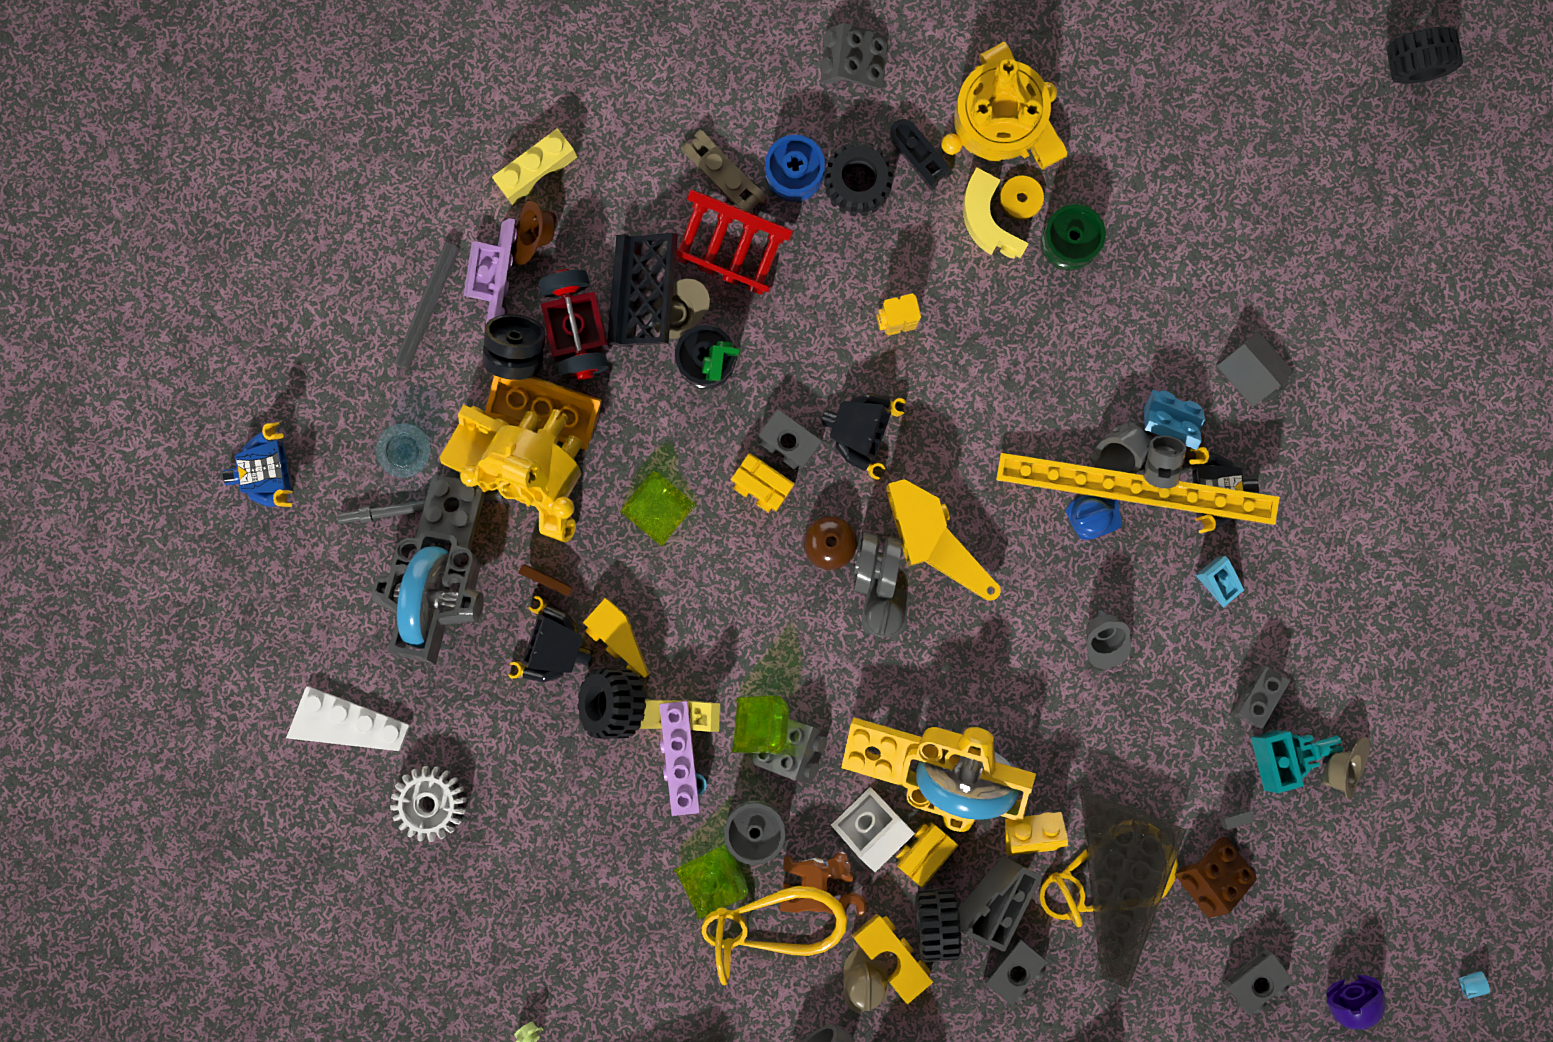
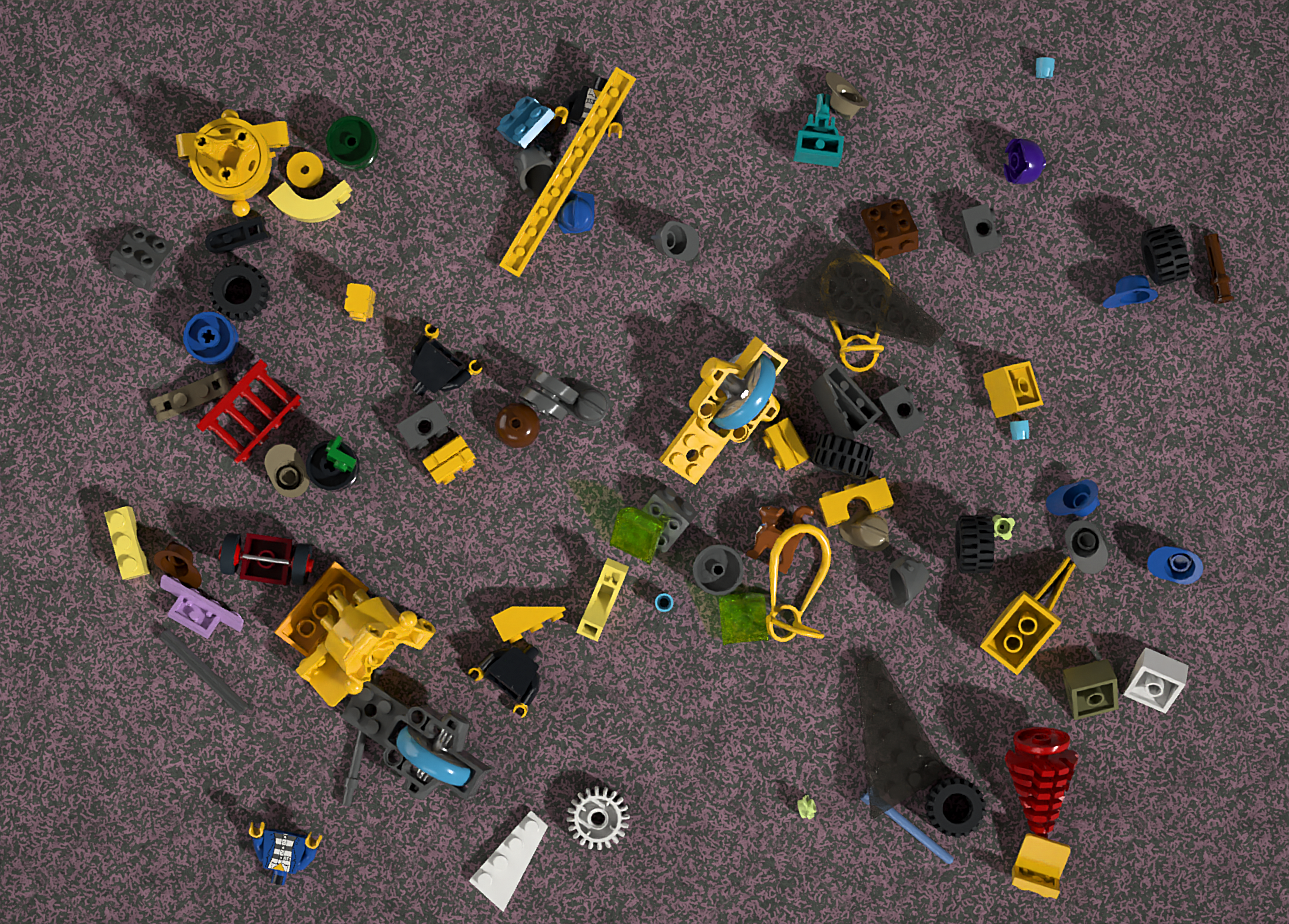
camera: 70 degrees left, 0 degrees up
(403, 450) = (312, 732): clear light blue piece -> none
(513, 346) = (265, 613): black wheel -> none
(545, 579) = (457, 660): reddish brown tile -> none
(611, 703) = (575, 642): black tyre -> none
(627, 289) = (255, 507): black fence -> none
(657, 508) = (437, 549): clear neon green slope -> none
(679, 758) = (639, 606): lavender bracket -> none
(872, 829) = (751, 478): white slope -> none
(926, 538) = (542, 349): yellow slope -> none
(1035, 834) = (802, 355): yellow bracket -> none
(1164, 461) = (555, 142): dark grey wheel -> none
(1221, 580) = (664, 135): medium azure slope -> none
(1236, 819) = (850, 199): dark grey tile -> none
(1255, 369) = (511, 43): dark grey slope -> none
(1260, 696) = (764, 141): dark grey brick -> none

